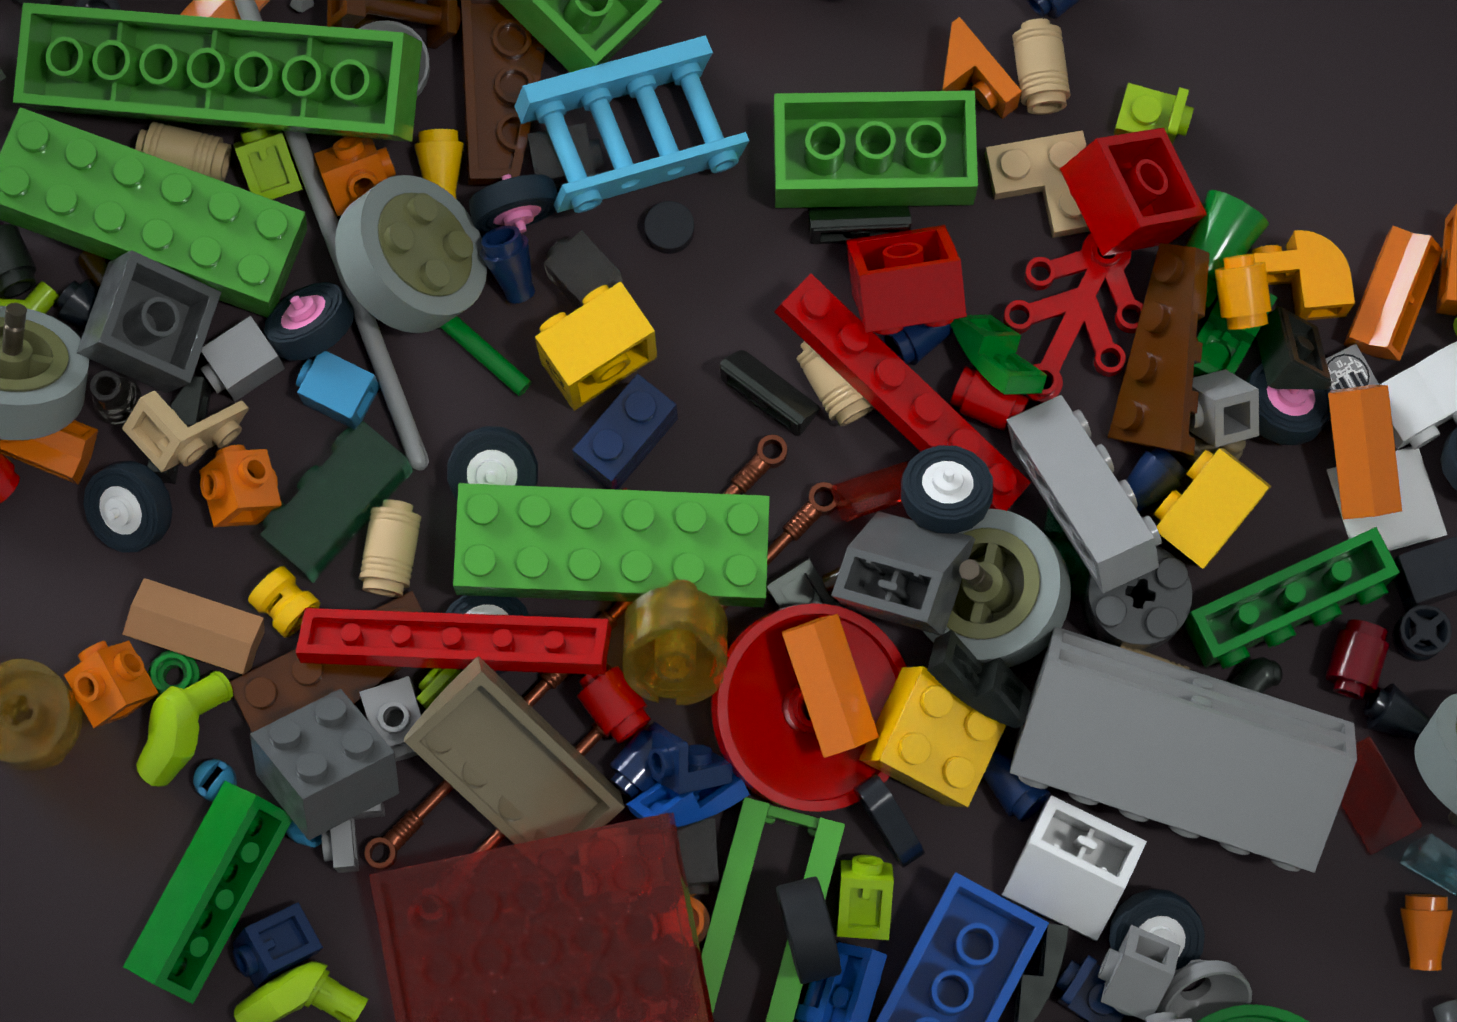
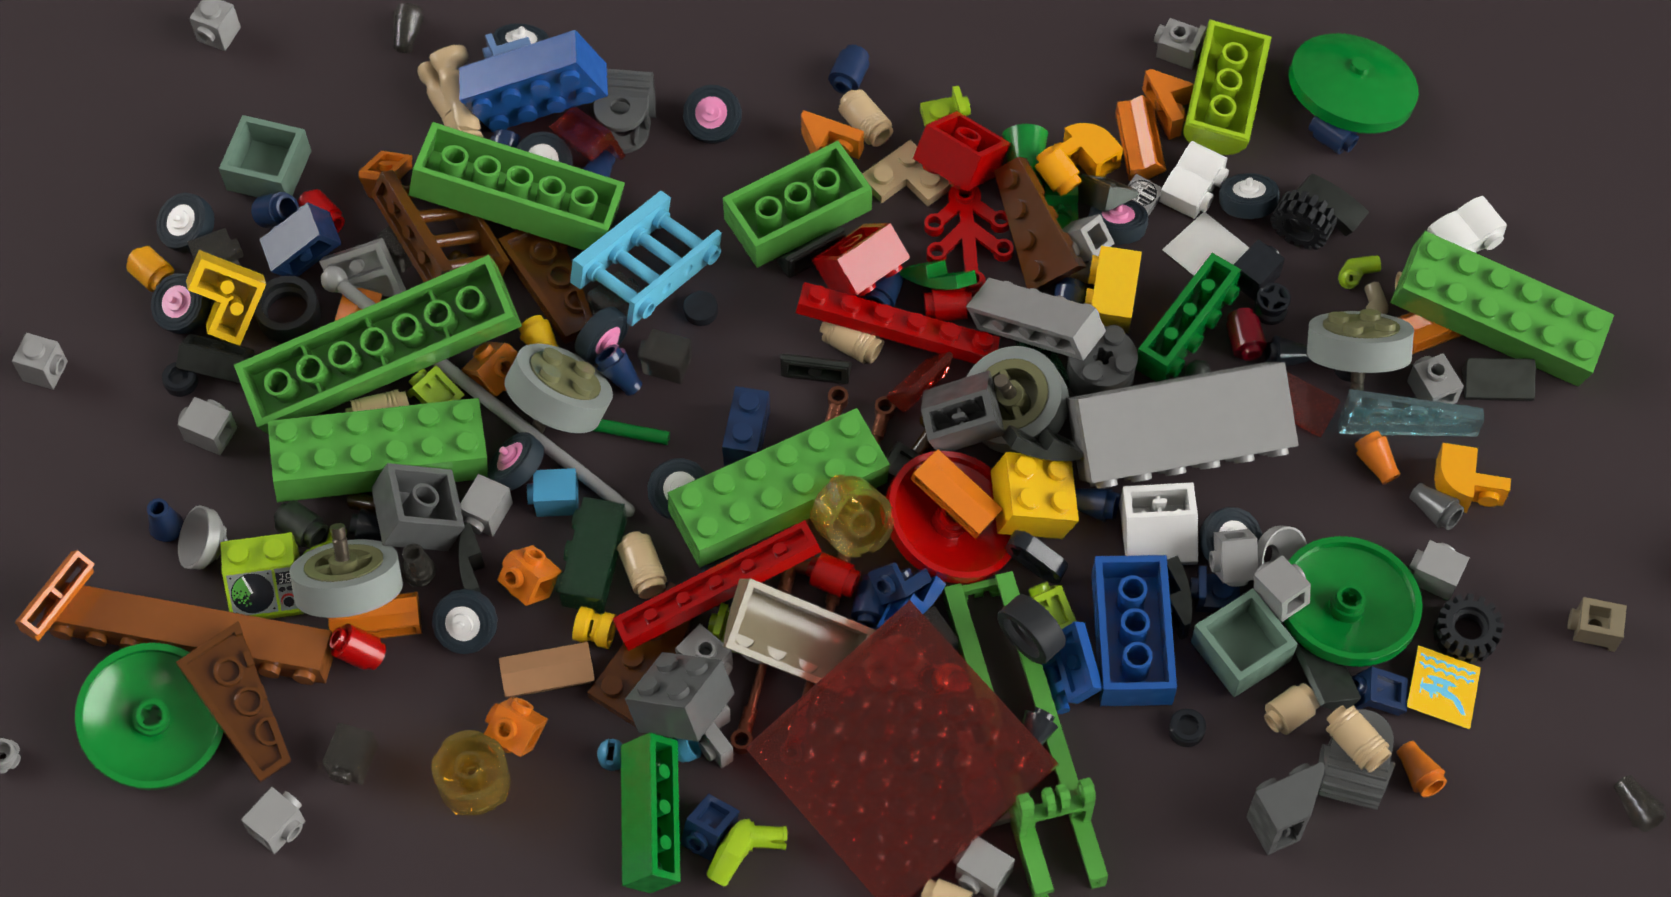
camera: 30 degrees left, 15 degrees down
(168, 439) = (472, 562): tan bracket -> none
(169, 660) = (551, 697): green plate -> none
(175, 727) = (572, 731): lime arm -> none
(596, 344) = (700, 385): yellow brick -> none
(946, 489) = (957, 354): black wheel -> none
(1365, 451) = (1179, 221): orange piece -> none

